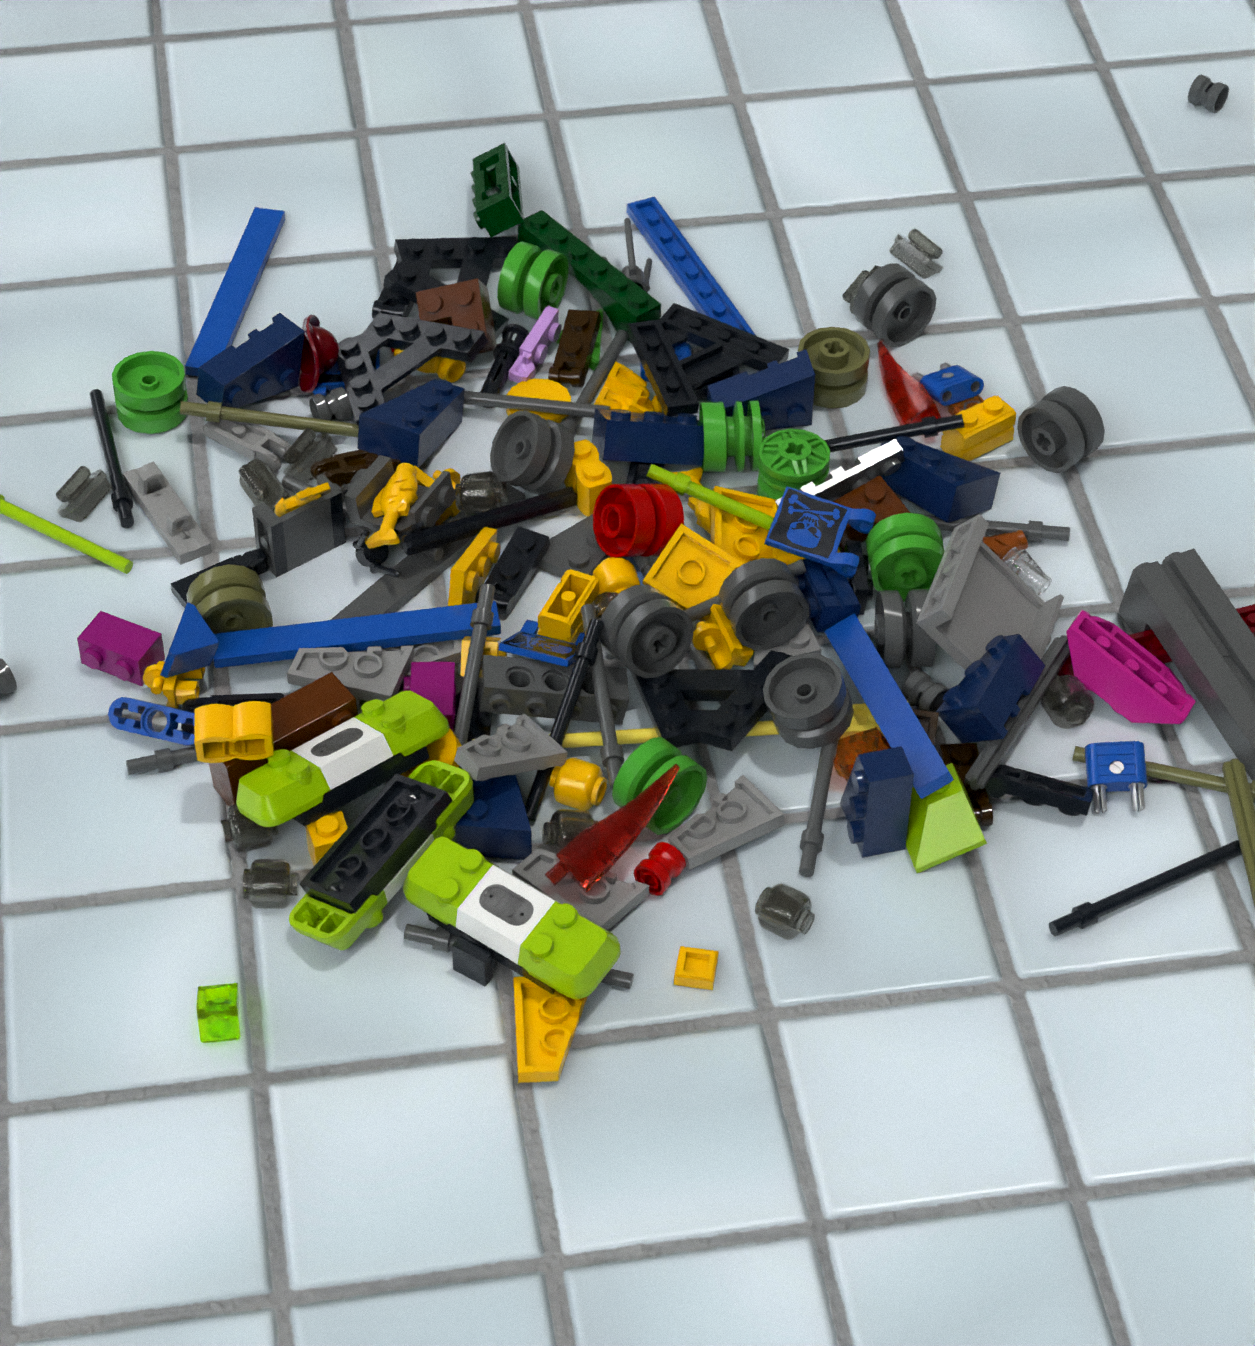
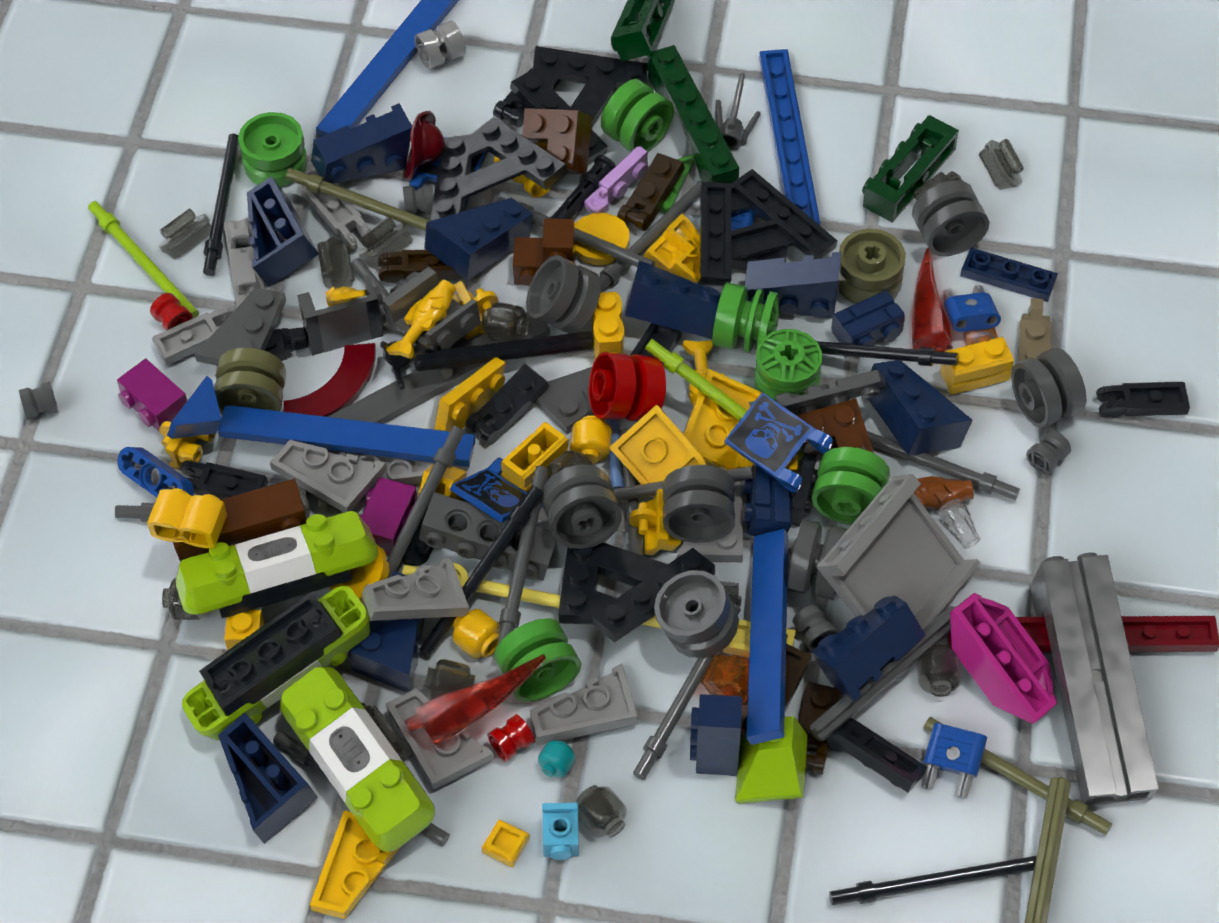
camera: 20 degrees right, 10 degrees up
(102, 567) = (169, 312): none -> red wheel
(141, 583) = (189, 336): none -> light grey hinge
(194, 464) = (277, 233): none -> dark blue wedge
(200, 550) = (246, 327): none -> dark grey wing
(218, 1012) = (93, 768): clear neon green bracket -> none
(270, 884) = (183, 658): clear smoke head -> none
(288, 261) = (443, 43): none -> light grey wheel
(327, 592) = (343, 387): none -> dark red tile
(414, 965) = (265, 778): none -> dark blue wedge
(472, 961) = (318, 782): black tile -> none
(477, 429) = (532, 252): none -> reddish brown brick
(716, 875) = (556, 759): none -> teal piece
(750, 938) = (560, 818): none -> medium azure brick
(811, 301) = (883, 191): none -> dark green brick
(852, 413) = (869, 321): none -> dark blue brick
(969, 347) = (1009, 274): none -> dark blue tile
(1017, 388) = (1034, 332): none -> dark tan hinge
(1083, 489) = (1052, 448): none -> dark grey wheel
(1152, 425) = (1143, 399): none -> black hinge

